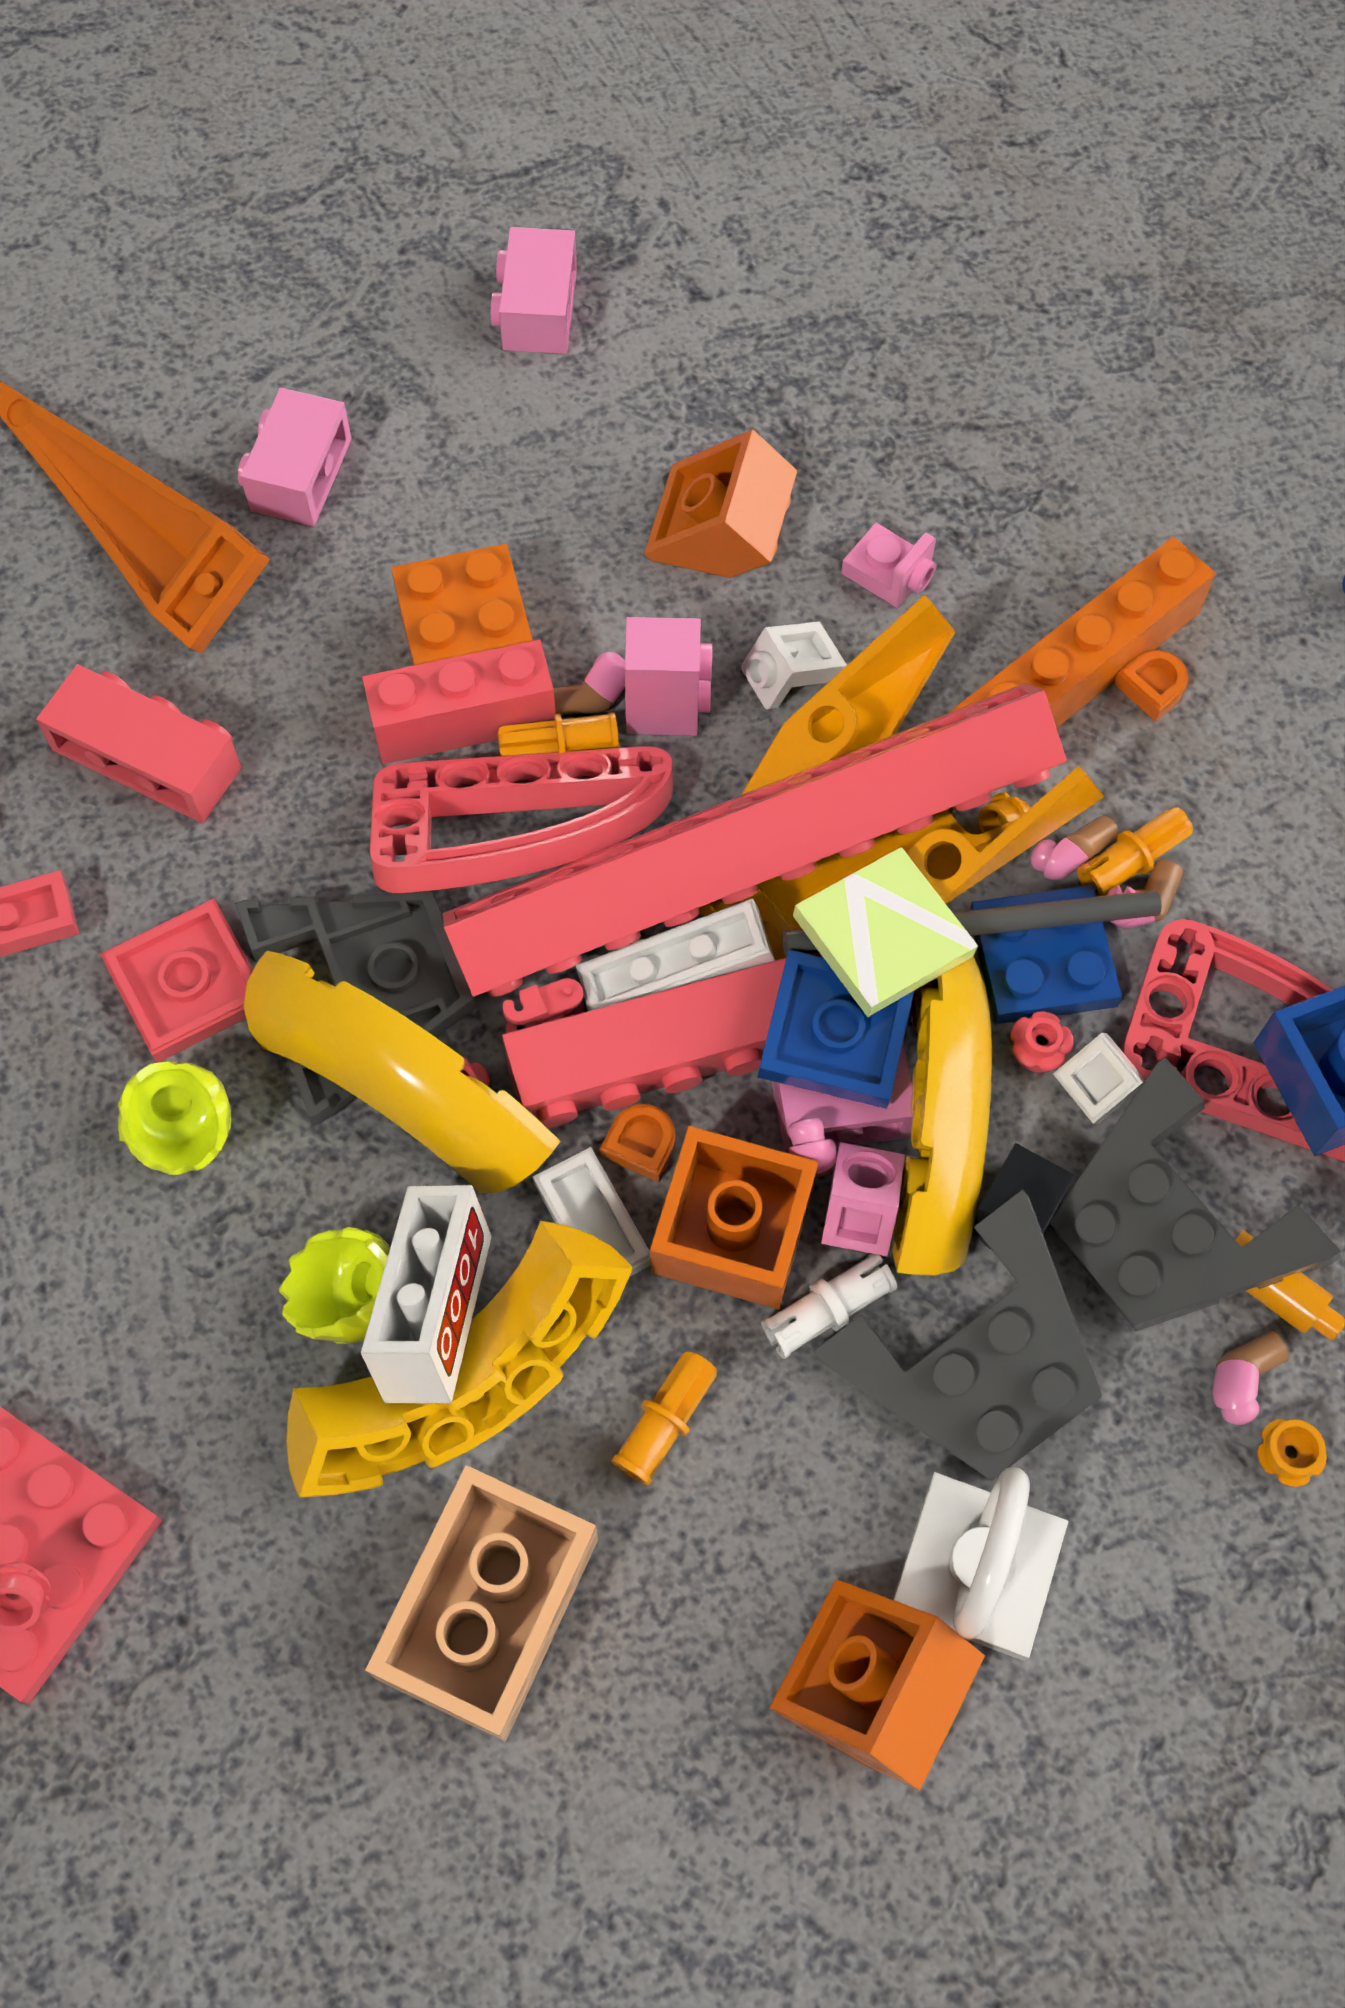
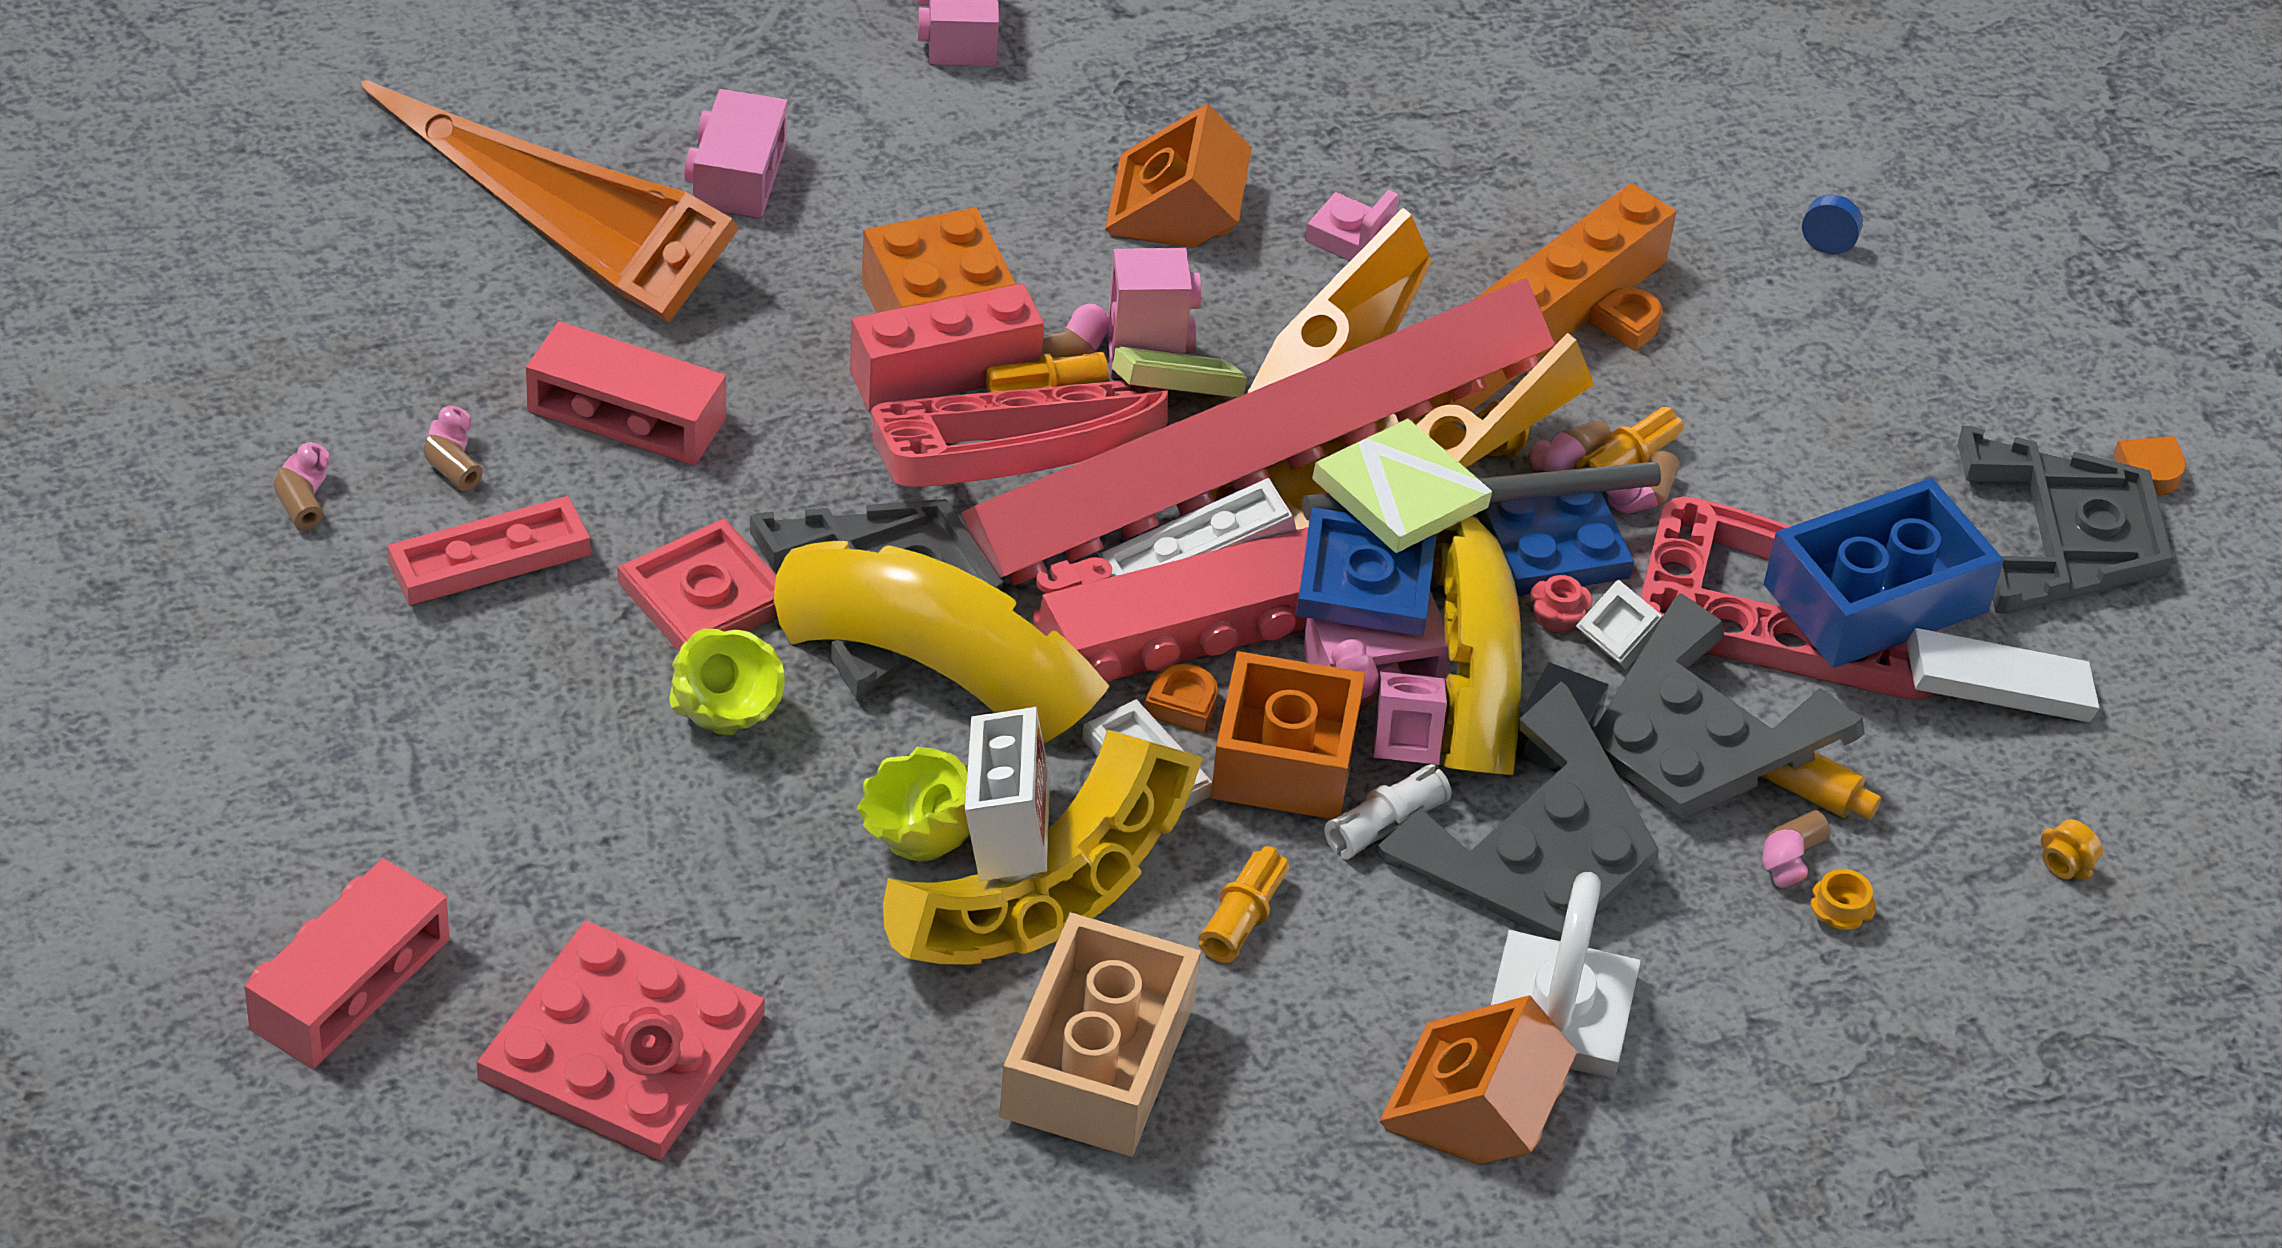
camera: 10 degrees left, 20 degrees down
(687, 744) = (1178, 372): none -> yellowish green tile
(790, 658) = (1261, 303): white bracket -> none

